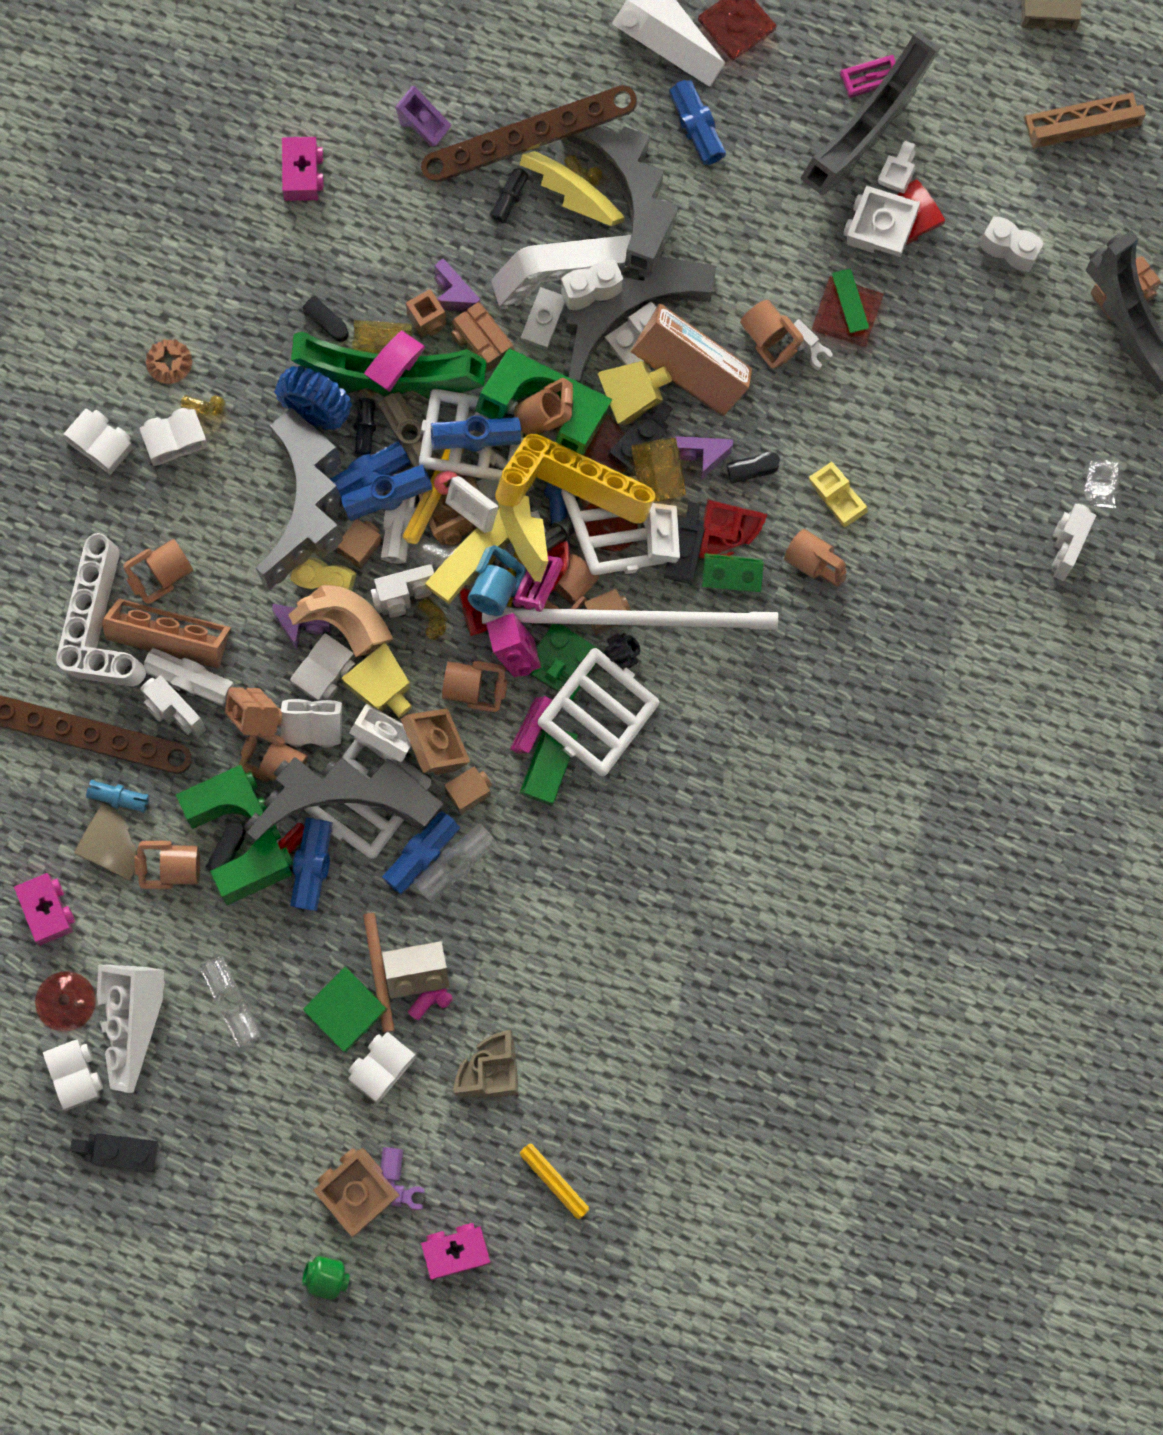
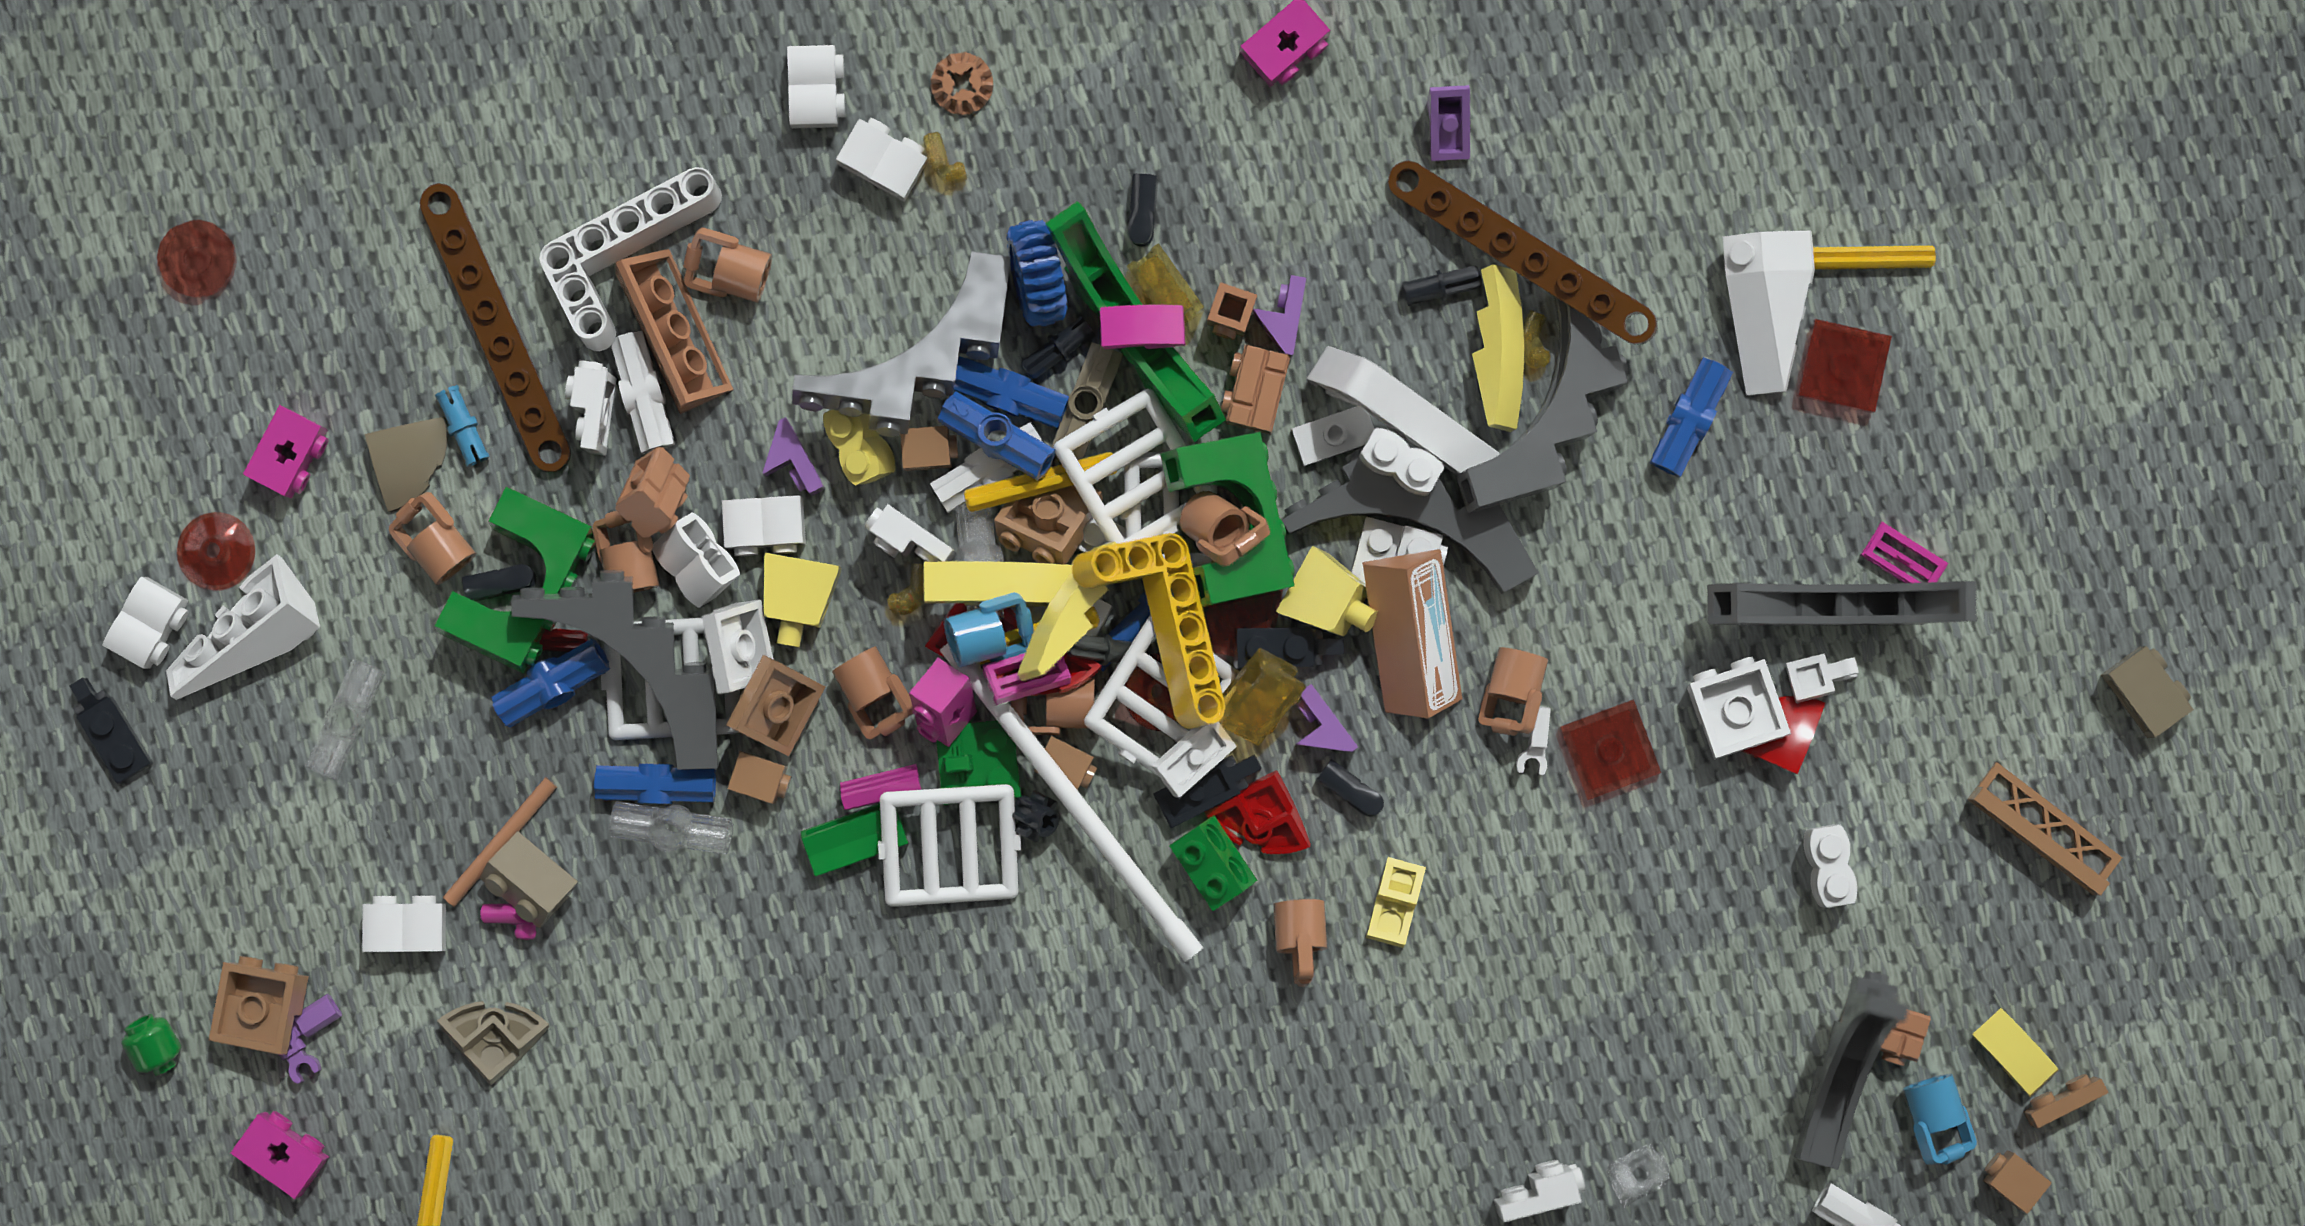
camera: 55 degrees right, 10 degrees up
(345, 1009) = (433, 840): green tile -> none
(347, 612) = (838, 501): light nougat arch -> none
(441, 478) = (1060, 482): coral hinge -> none
(471, 504) = (1051, 537): white plate -> none
(494, 433) = (1151, 496): blue piece -> none
(850, 300) = (1621, 744): green sticker -> none

